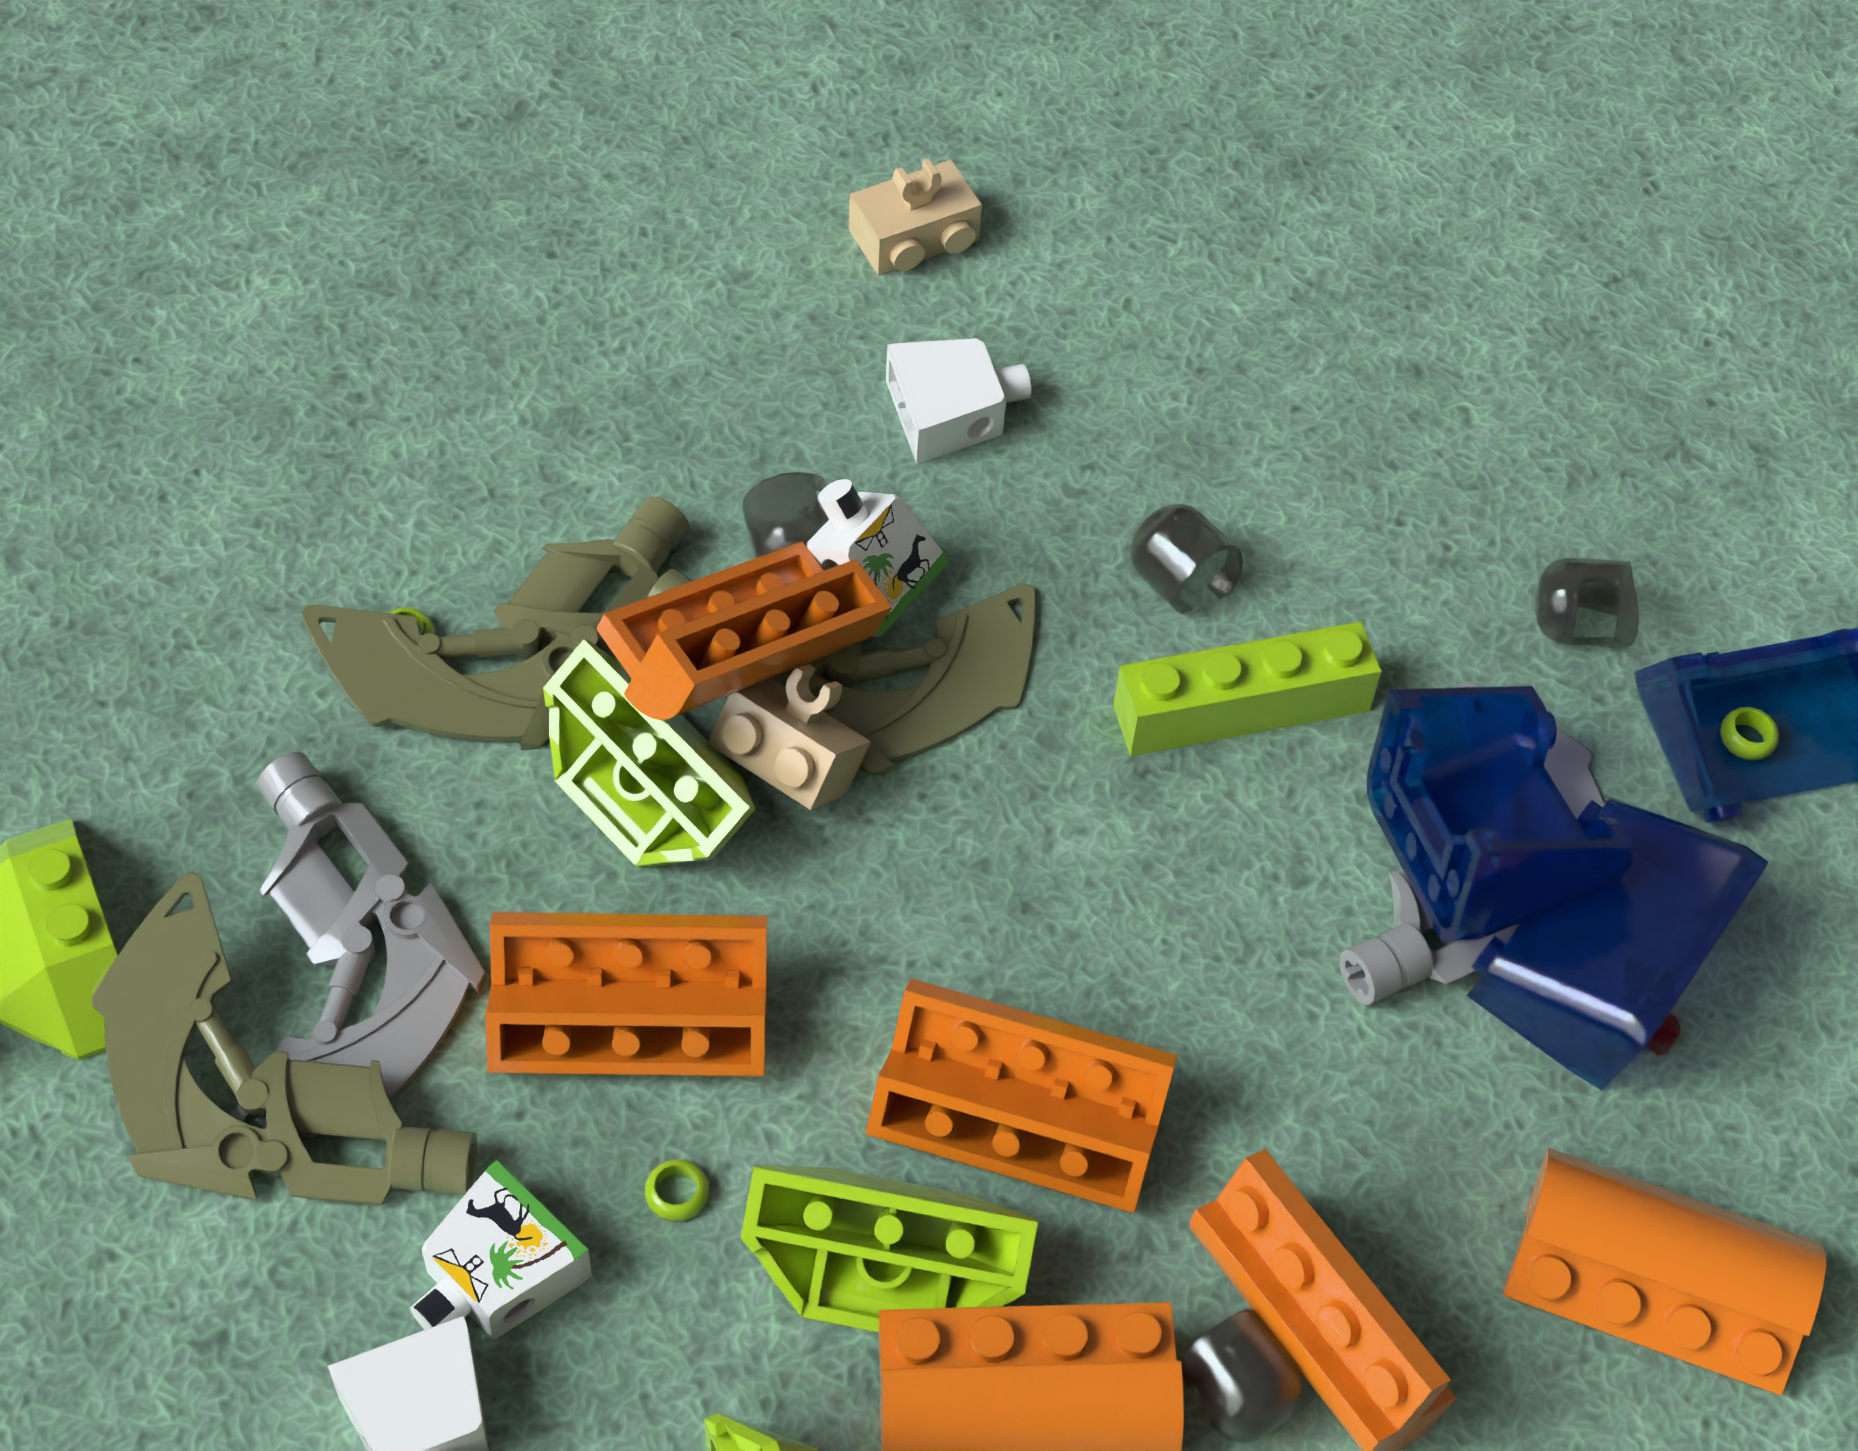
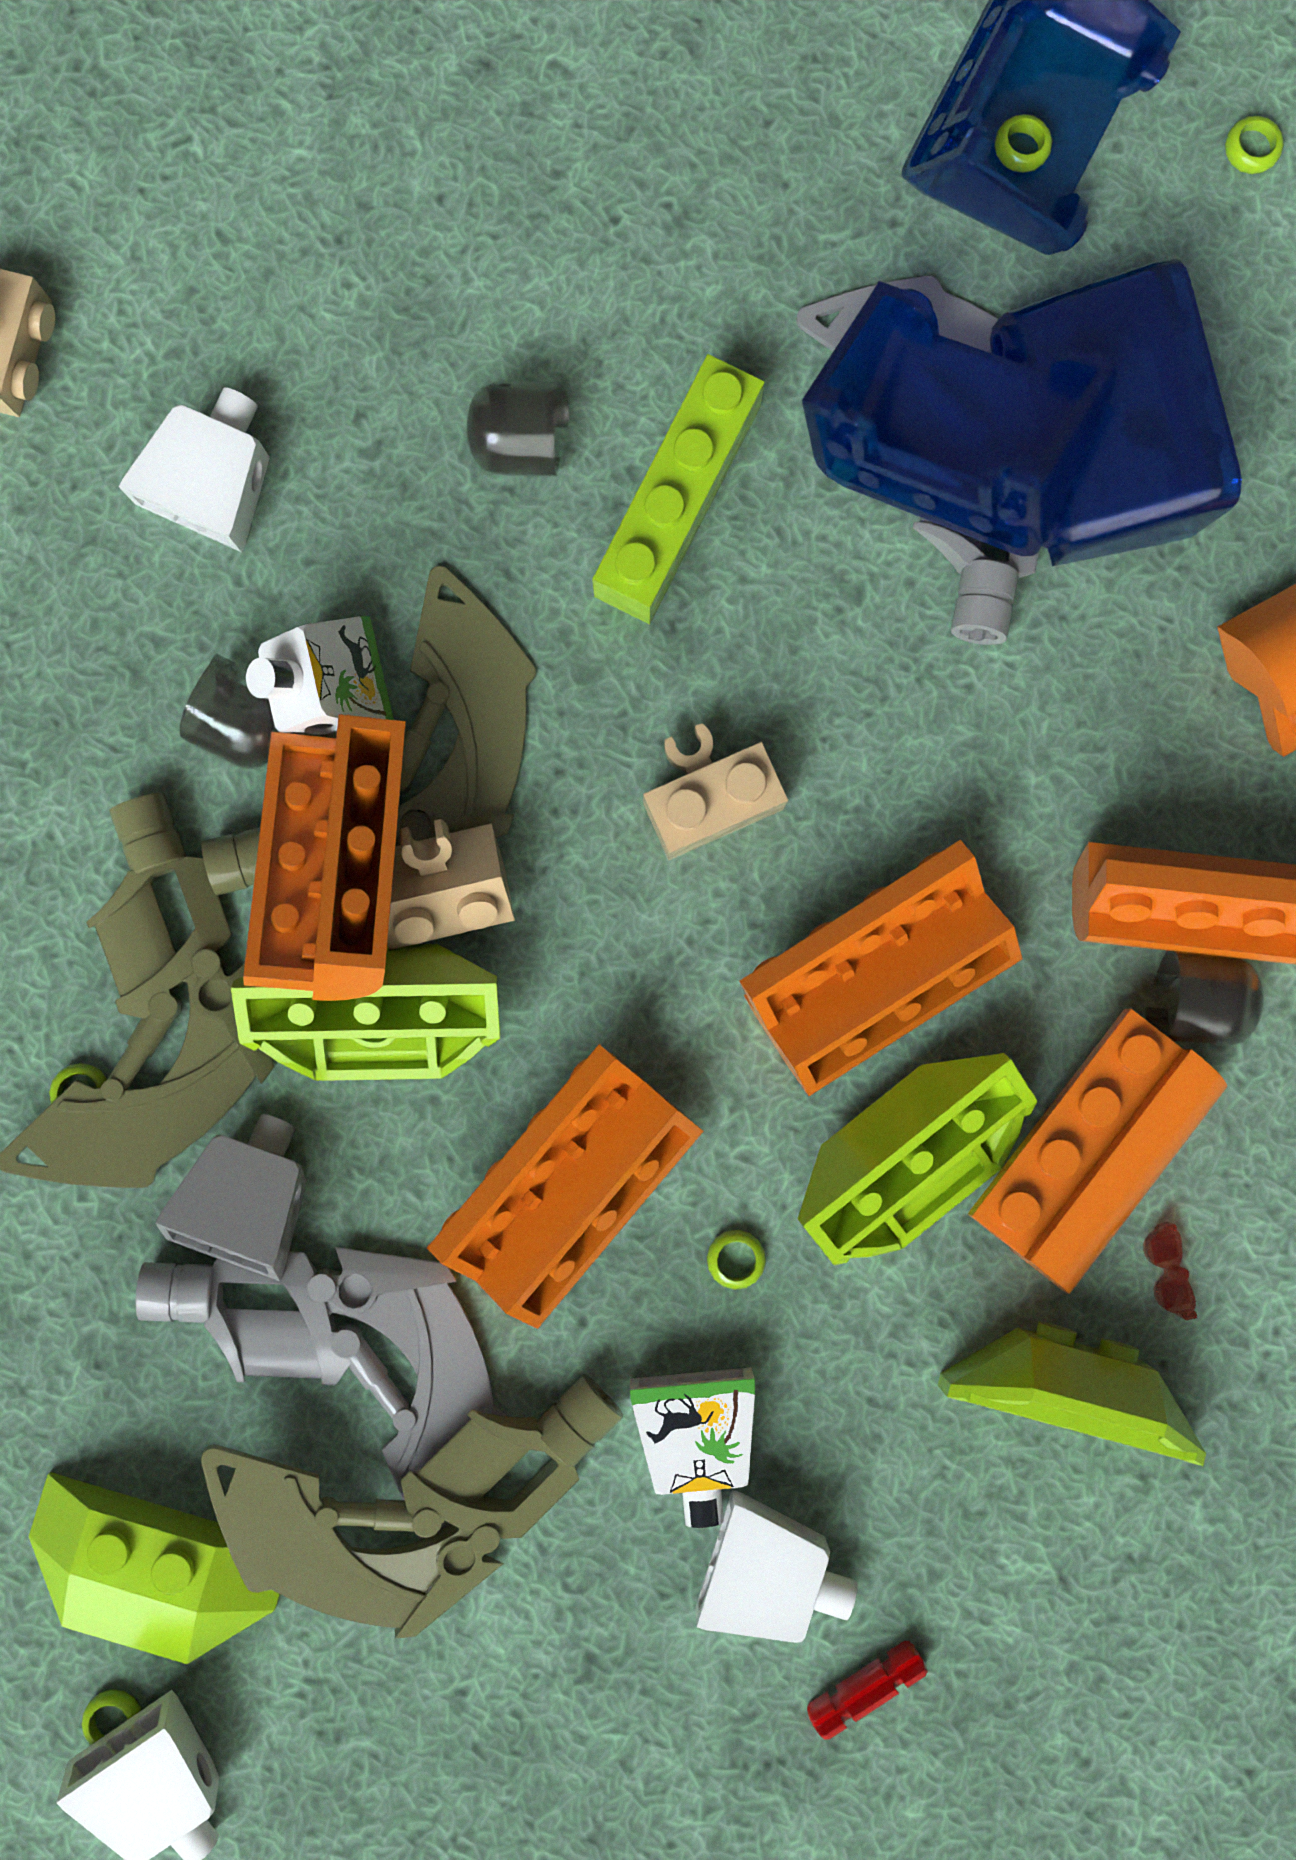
camera: 45 degrees left, 30 degrees up
(414, 781) = (240, 1200): none -> light grey torso
(1038, 880) = (712, 796): none -> tan brick
(1588, 584) = (795, 151): clear smoke helmet -> none

